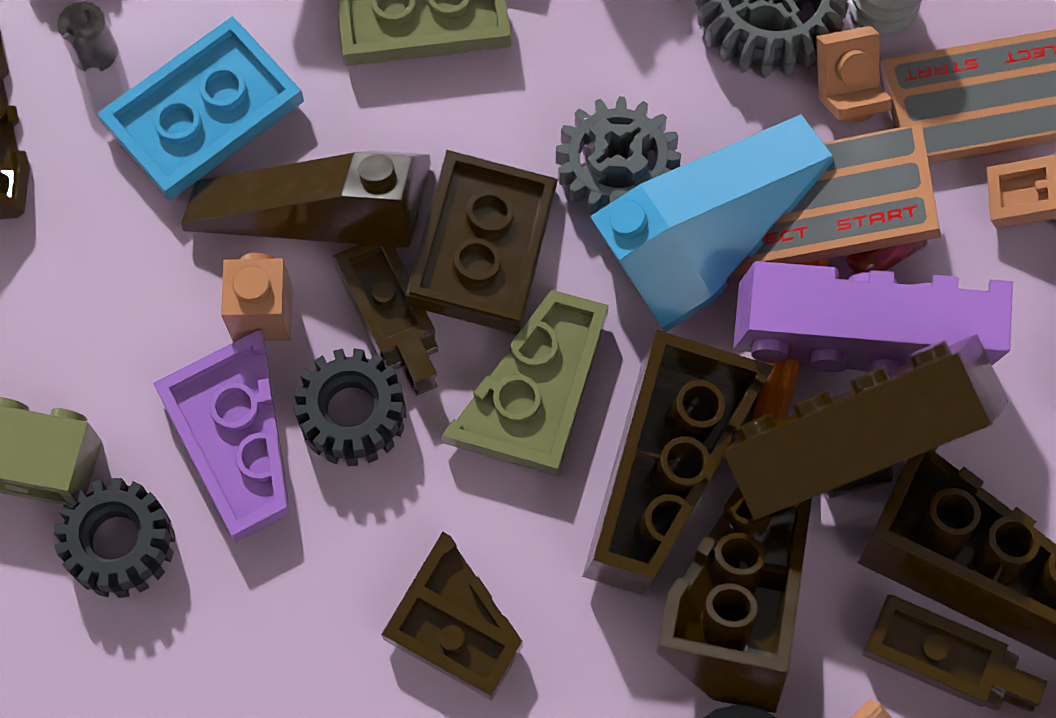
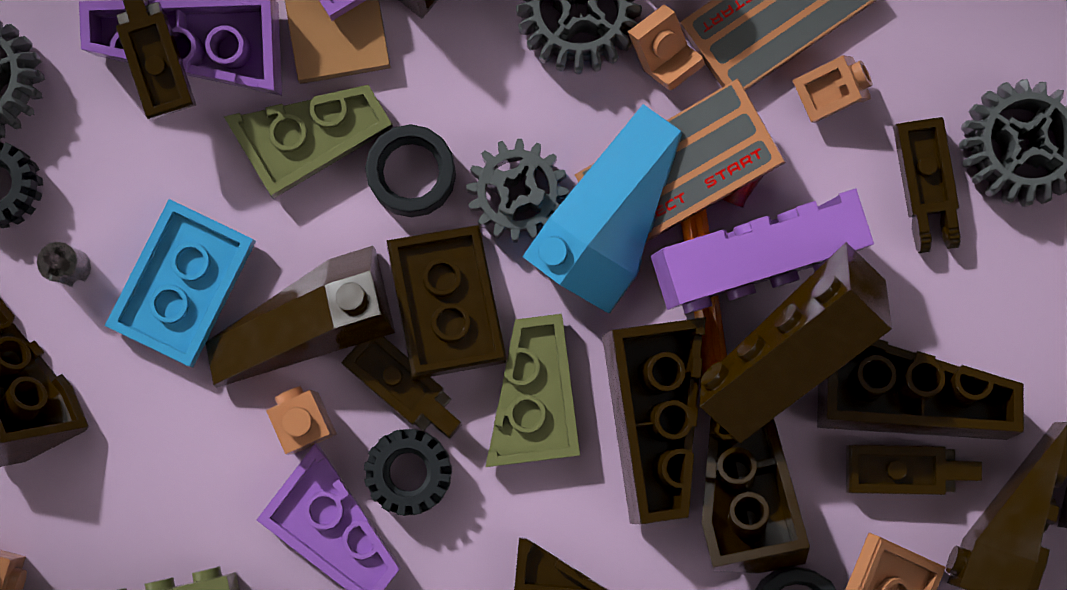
camera: 25 degrees left, 15 degrees up
(500, 56) = (403, 136): none -> black tyre

